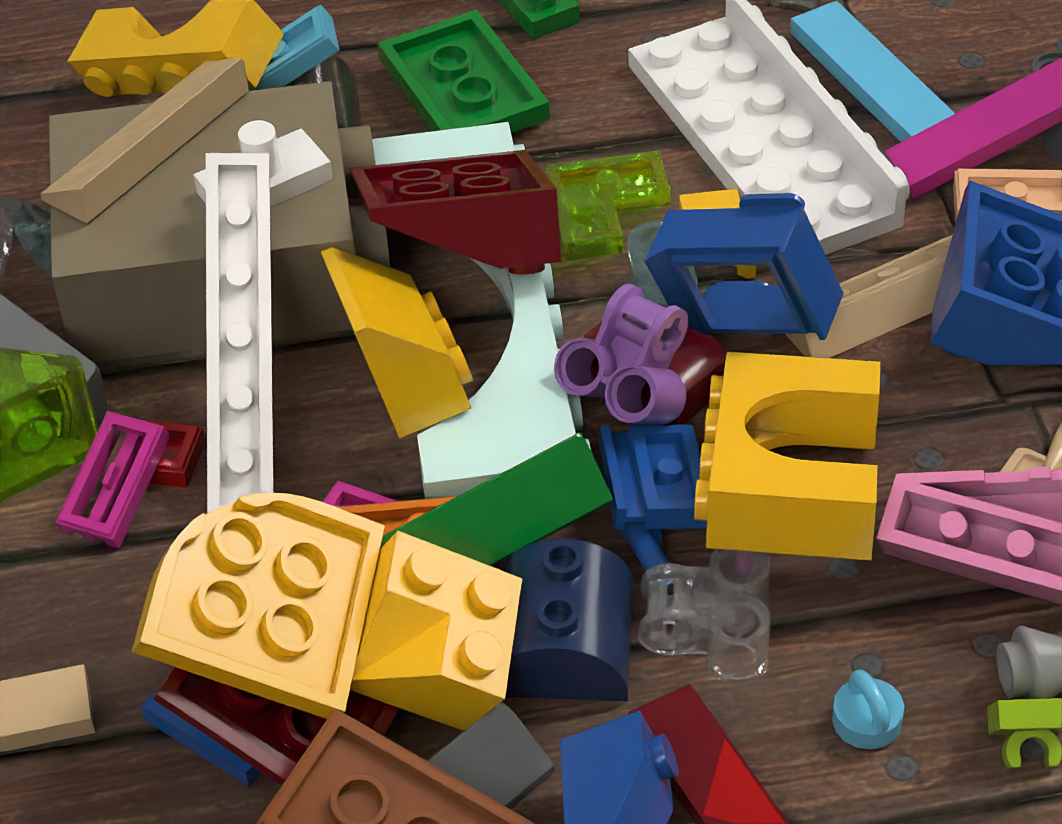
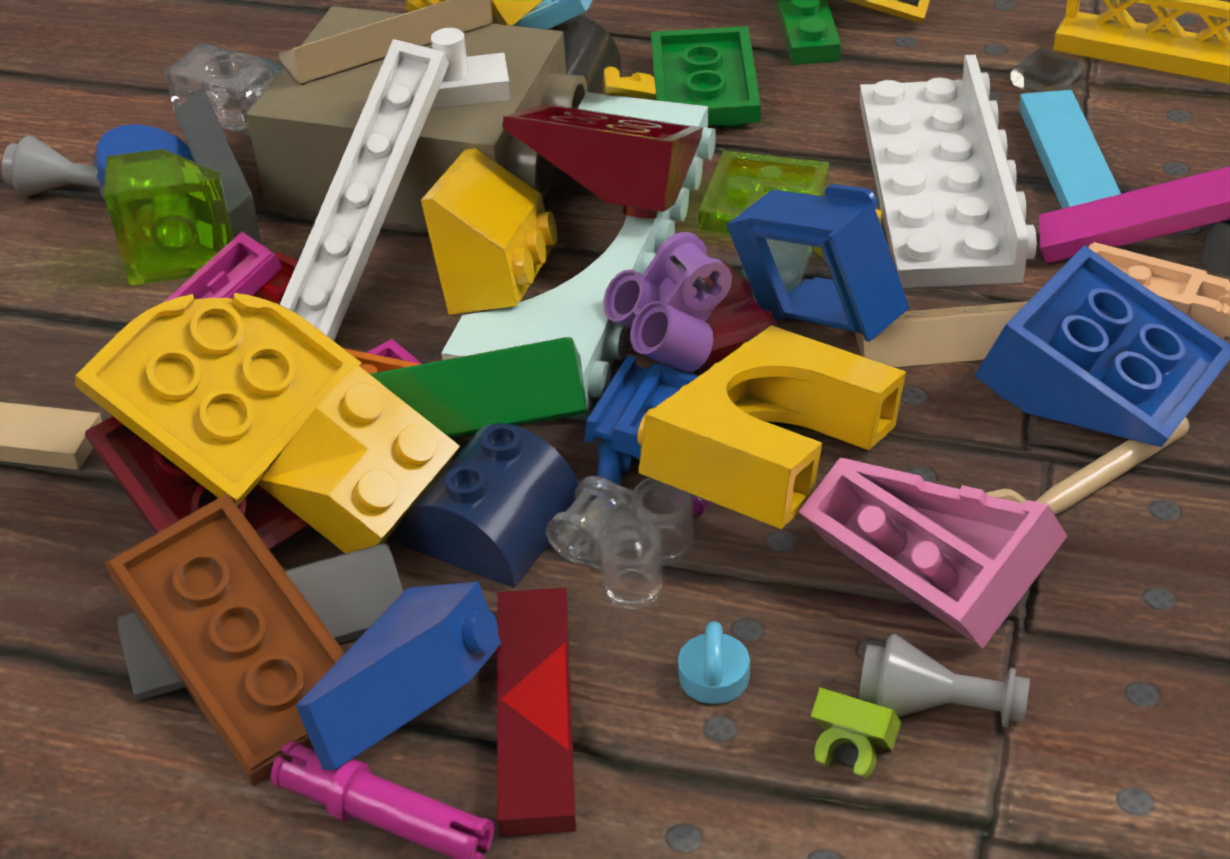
camera: 25 degrees right, 5 degrees down
(403, 120) = (636, 86): none -> yellow tile

